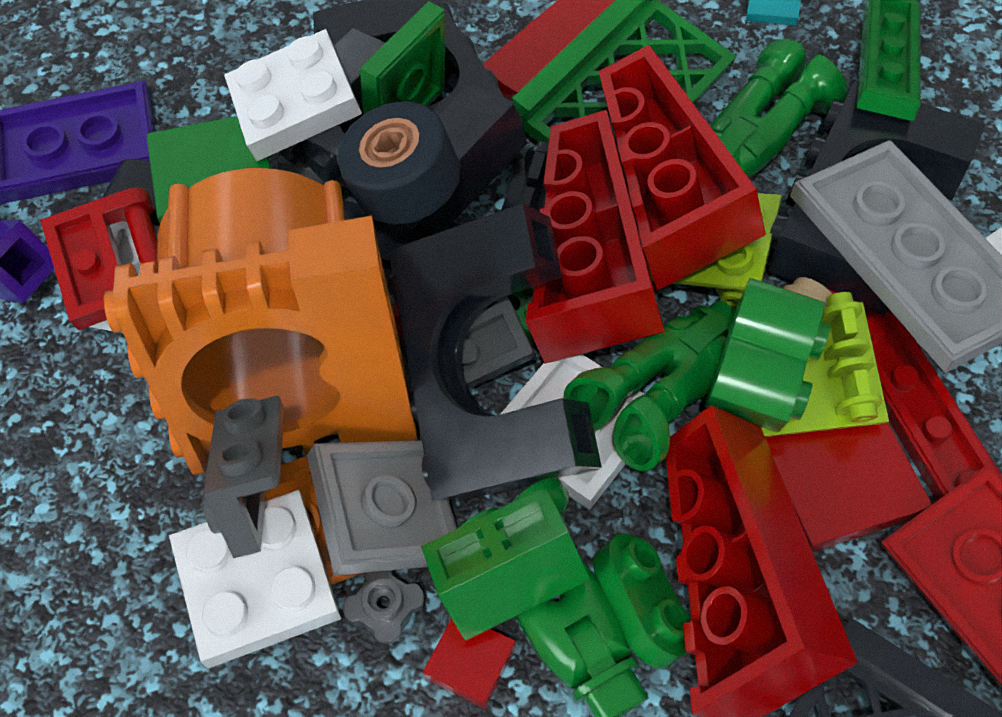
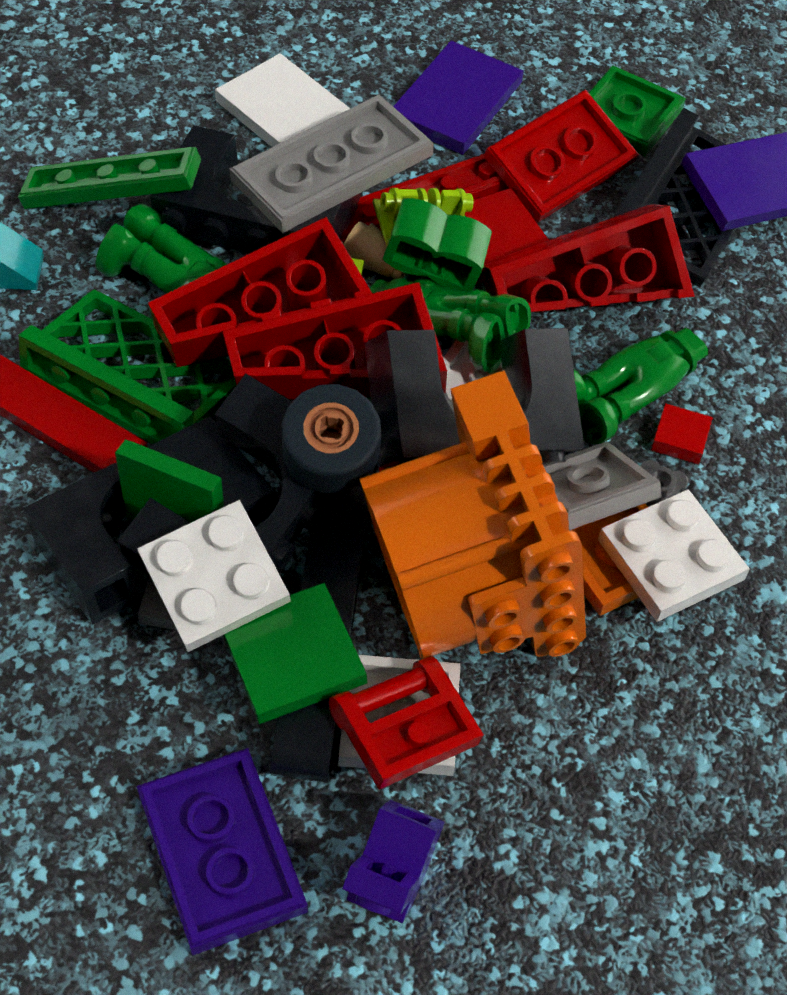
camera: 105 degrees left, 5 degrees down
(240, 470) = (622, 527): dark grey bracket -> none
(504, 563) = (628, 388): green hinge -> none
(642, 599) = (606, 337): green plate -> none

